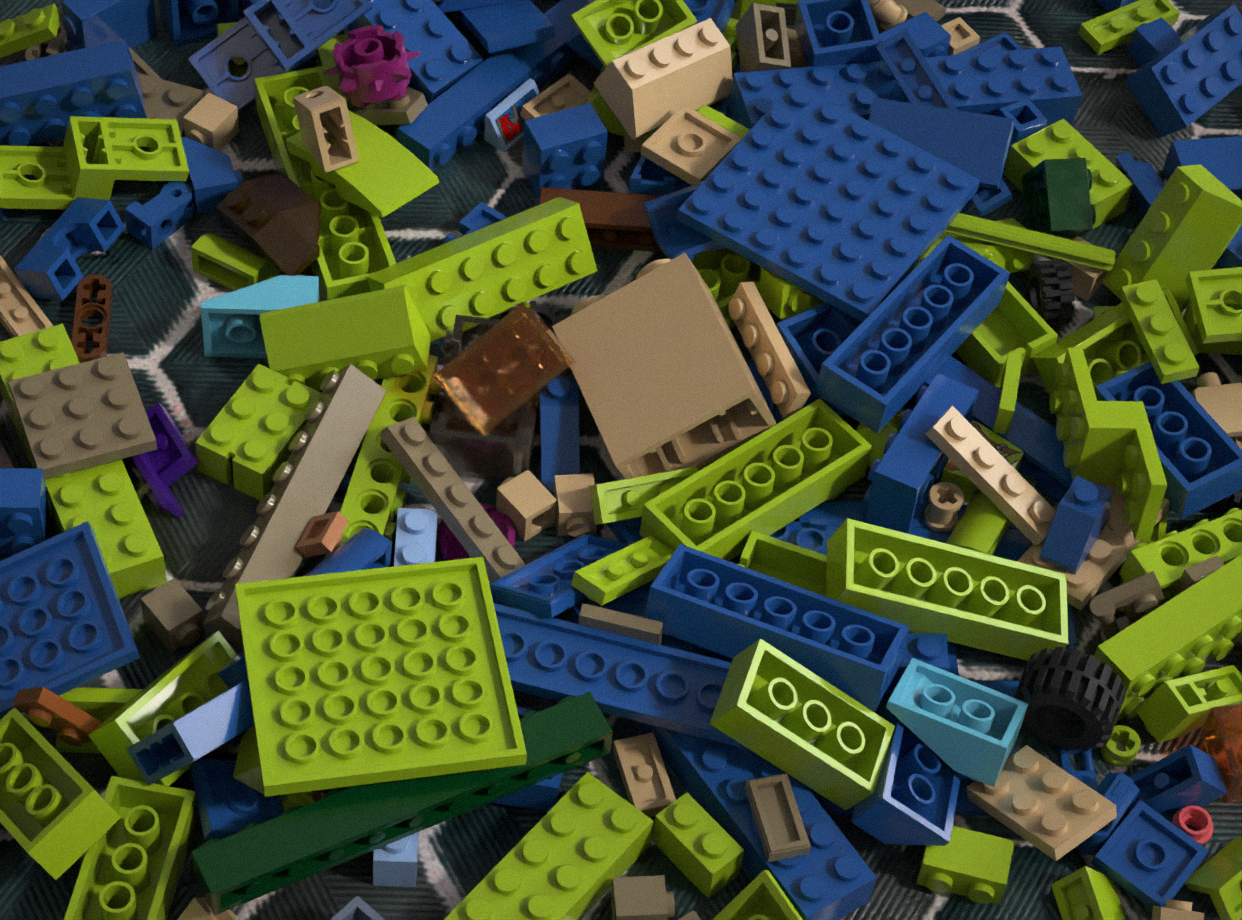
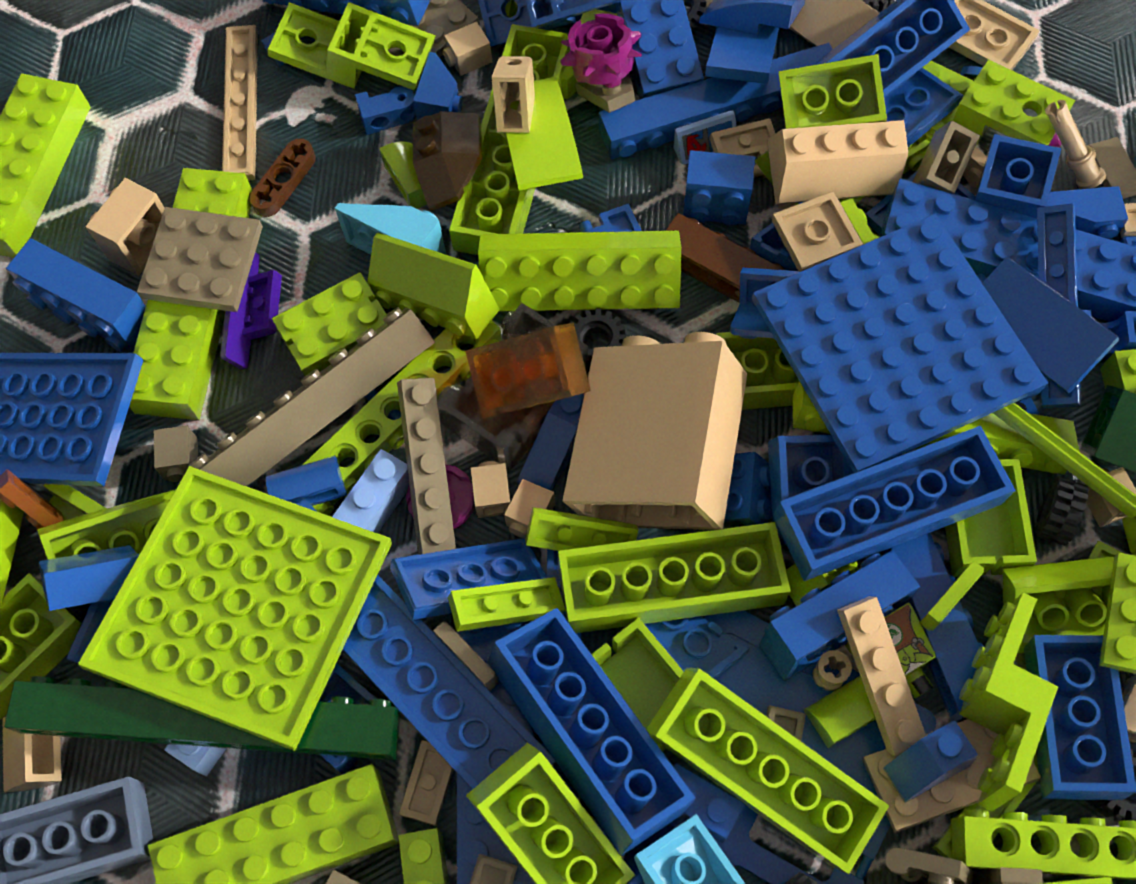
camera: 40 degrees right, 15 degrees up
(50, 266) = (314, 99): blue arch -> none
(322, 534) = (306, 446): nougat plate -> none
(768, 350) = (759, 464): tan plate -> none

